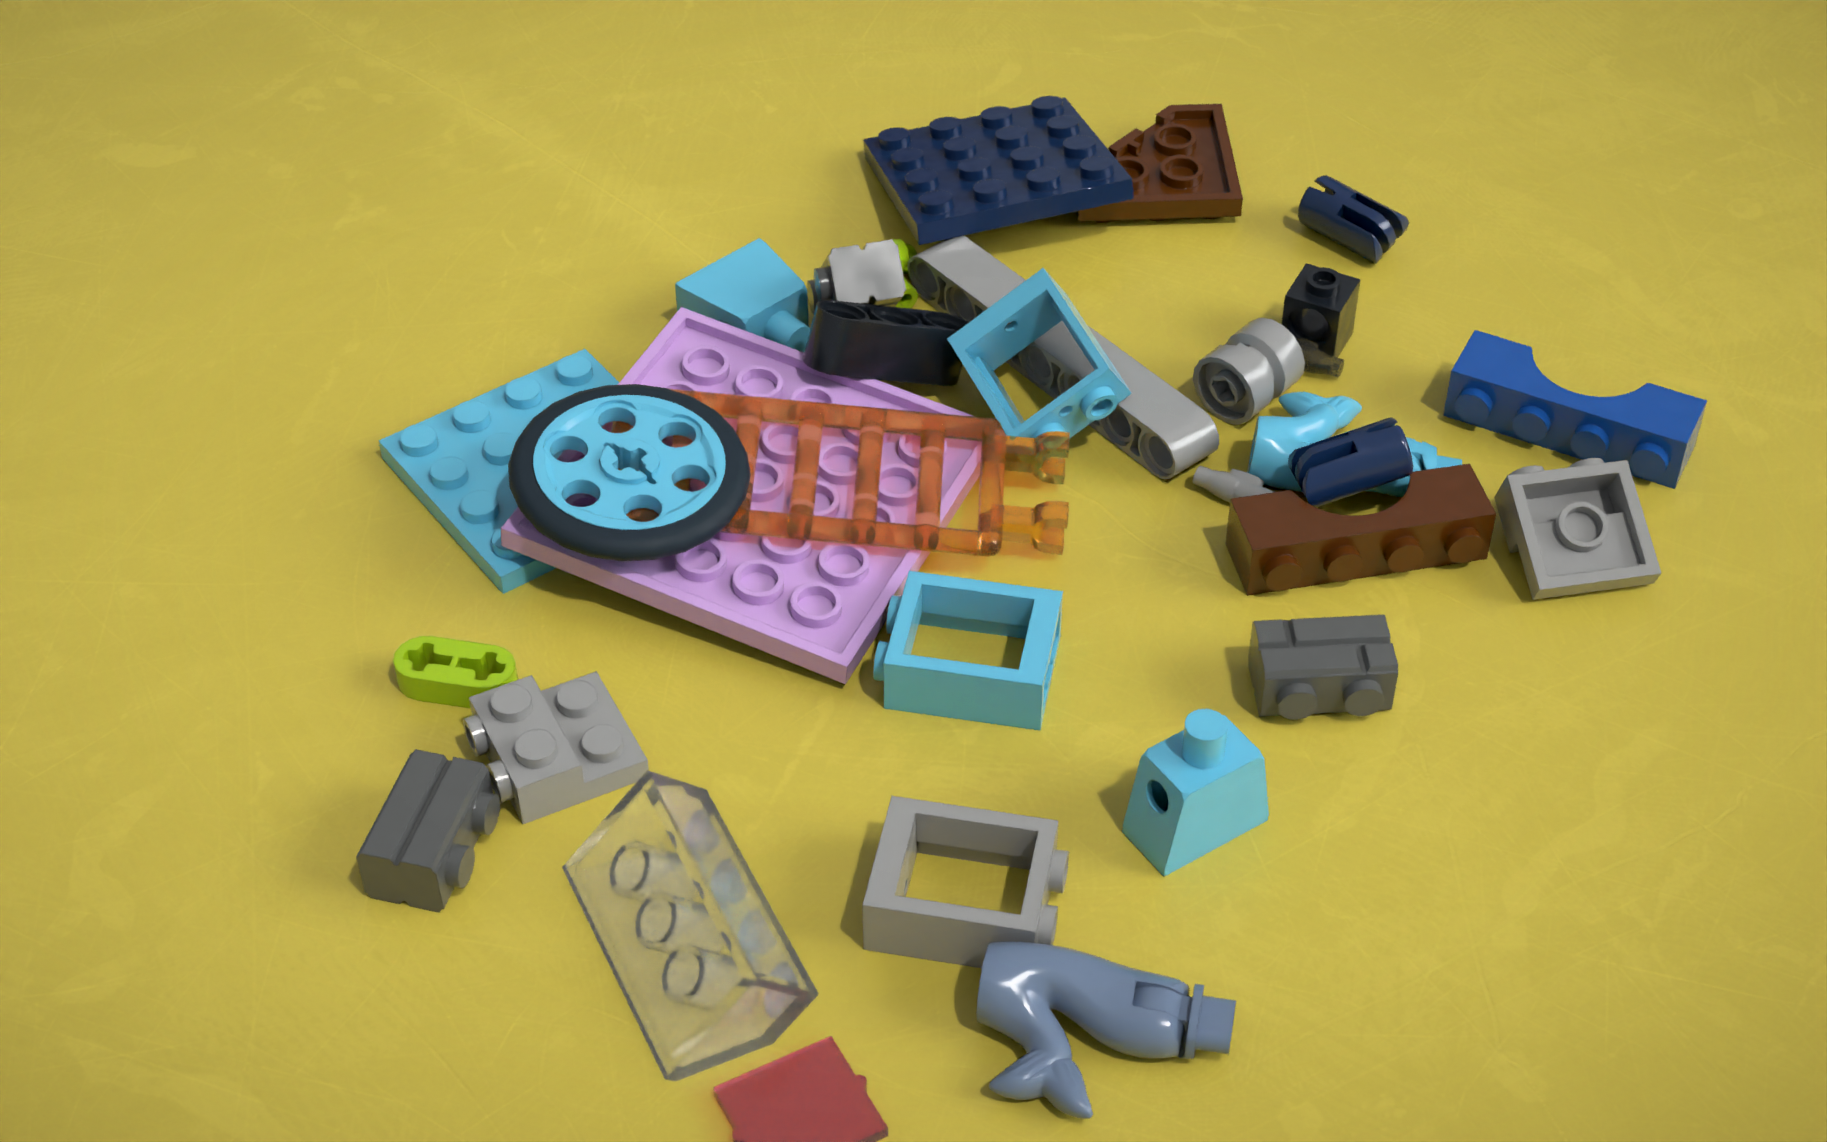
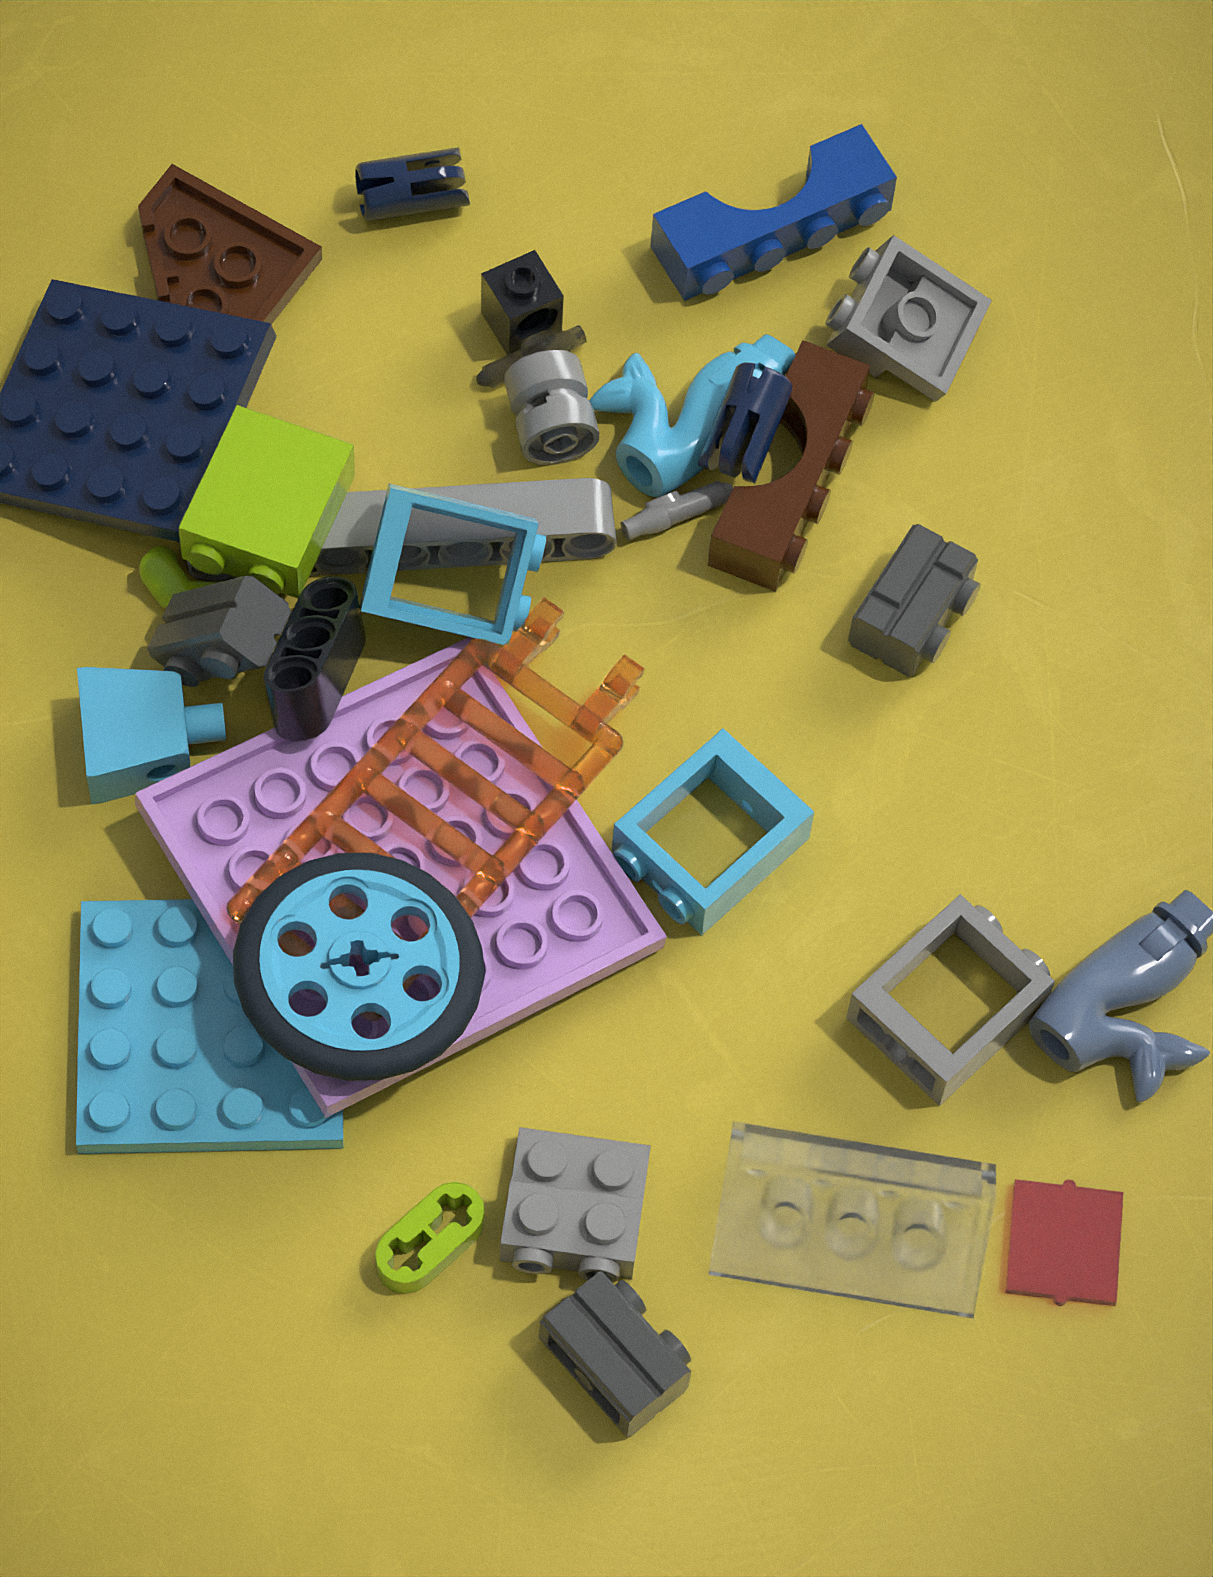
camera: 60 degrees left, 20 degrees up
(979, 244) = (267, 501): none -> lime brick
(1196, 792) = (988, 768): medium azure torso -> none

